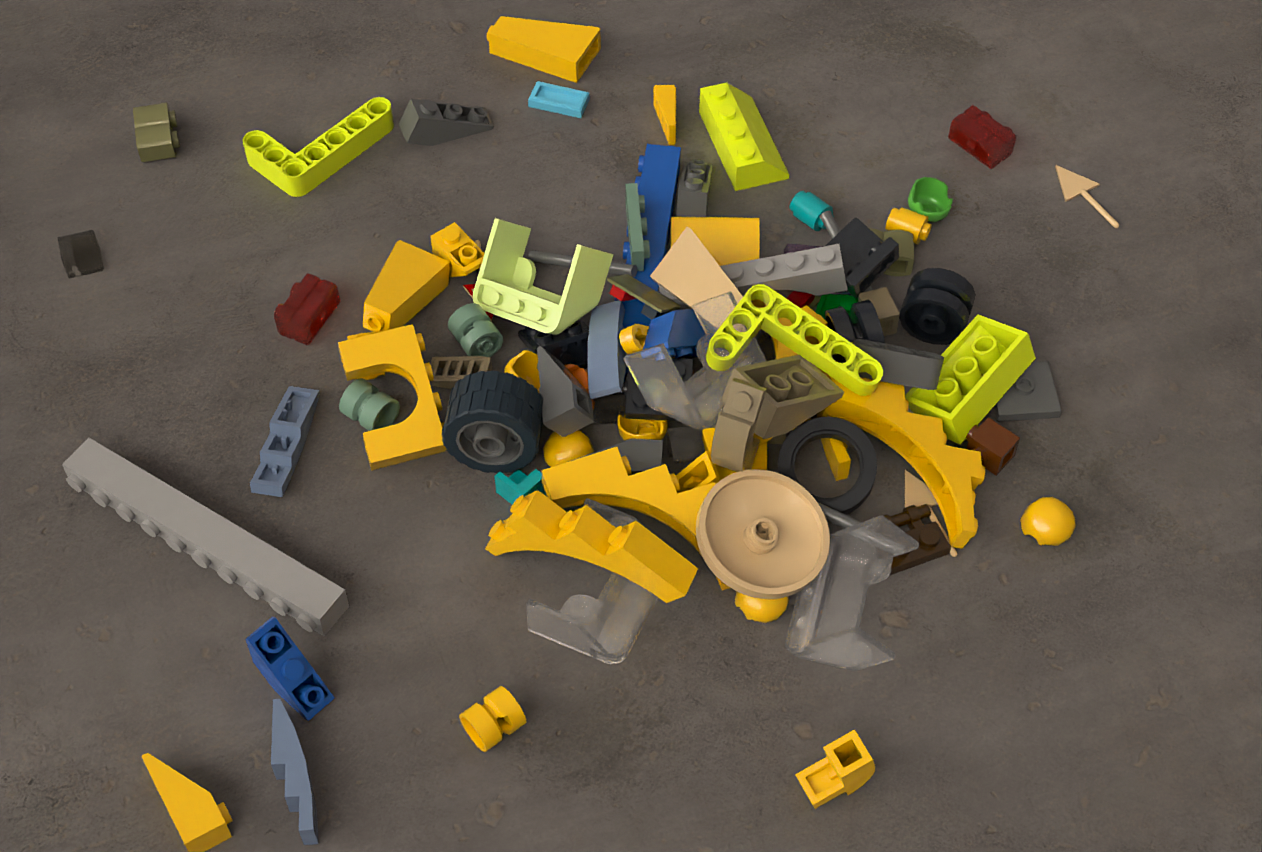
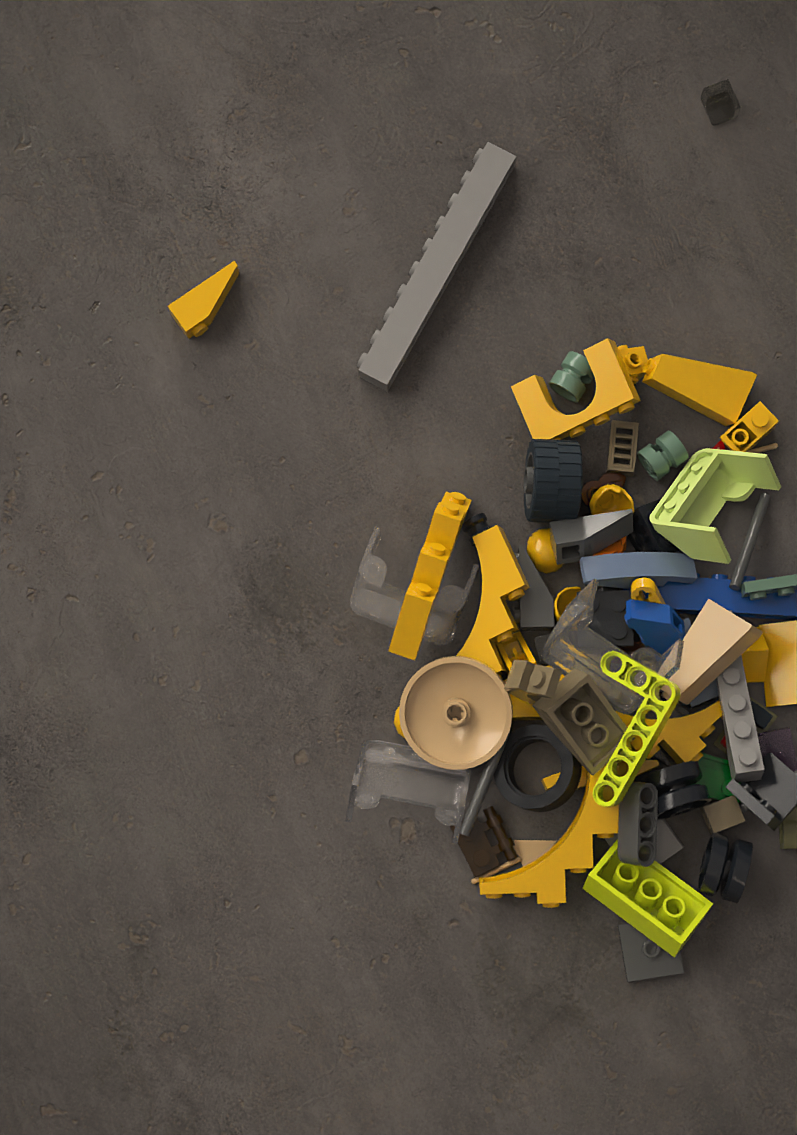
camera: 90 degrees right, 25 degrees up
(285, 442) = (538, 314): sand blue slope -> none
(287, 669) = (314, 355): blue slope -> none
(290, 764) = (246, 369): sand blue slope -> none
(306, 308) = (677, 306): clear red brick -> none
(493, 718) = (285, 512): yellow wheel -> none
(518, 484) = (506, 513): teal panel -> none
(629, 288) = (707, 584): olive piece -> none
(841, 771) = (256, 779): yellow brick -> none
(994, 443) = (581, 914): reddish brown brick -> none
(1048, 521) = (509, 963): yellow hair -> none

